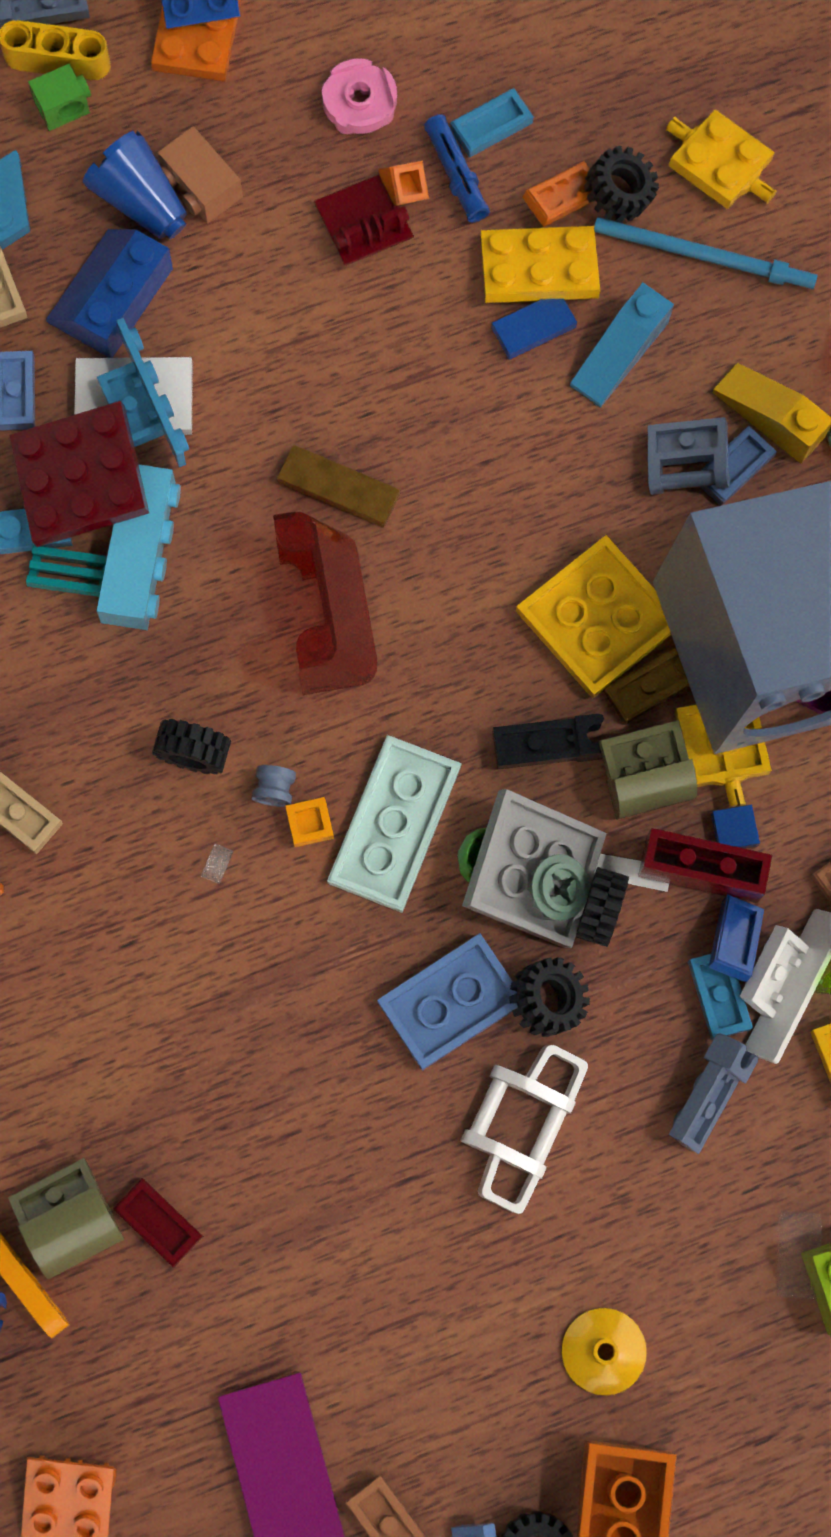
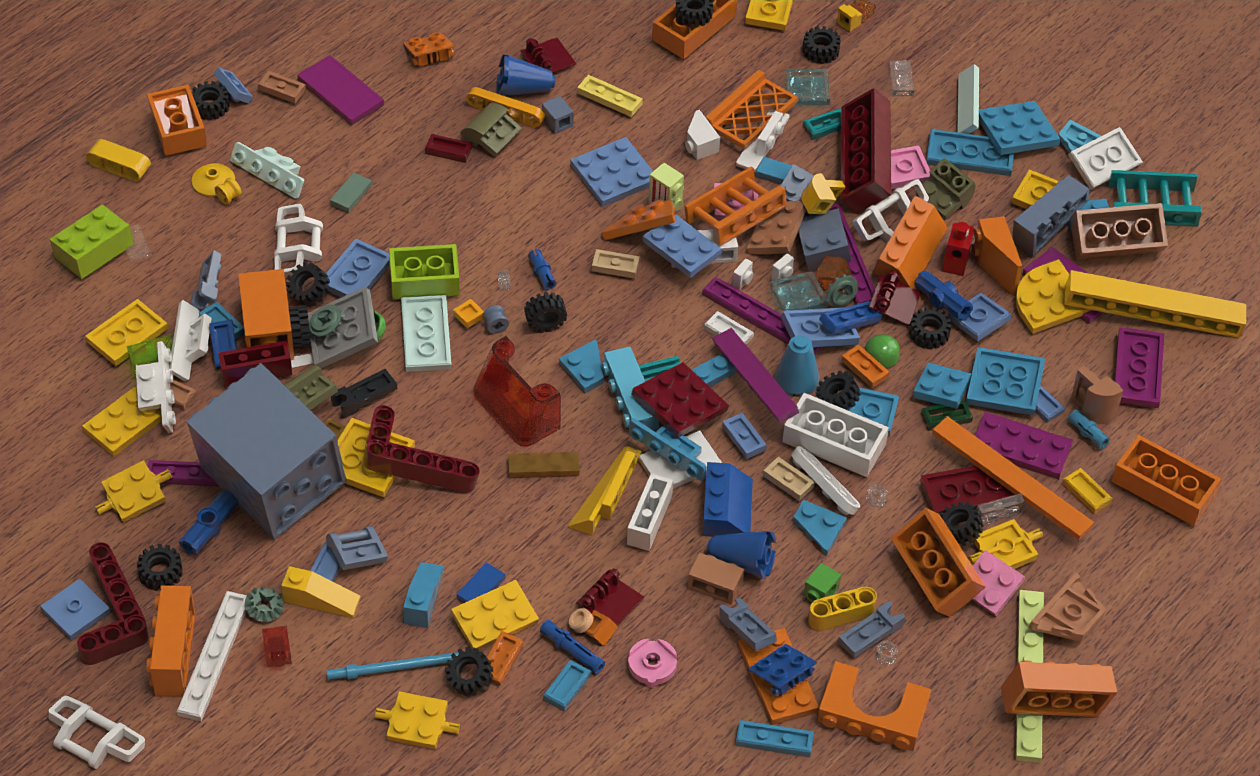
camera: 155 degrees right, 25 degrees down
(142, 862) = (542, 269): none -> blue pin
(178, 637) = (584, 366): none -> dark azure wing
(203, 69) = (747, 625): none -> sand blue plate
(234, 310) = (650, 512): none -> white brick
(269, 394) = (607, 493): none -> yellow wedge
(344, 930) = (424, 271): none -> lime brick
(378, 1195) = (351, 192): none -> sand green tile
(424, 199) = (580, 620): none -> light nougat tile
(491, 1321) = (270, 167): none -> light aqua bracket
(545, 557) = (411, 462): none -> dark red beam
(595, 1294) = (228, 191): none -> yellow wheel
(651, 951) = (265, 308): none -> orange brick
(762, 1472) = (118, 160): none -> yellow beam

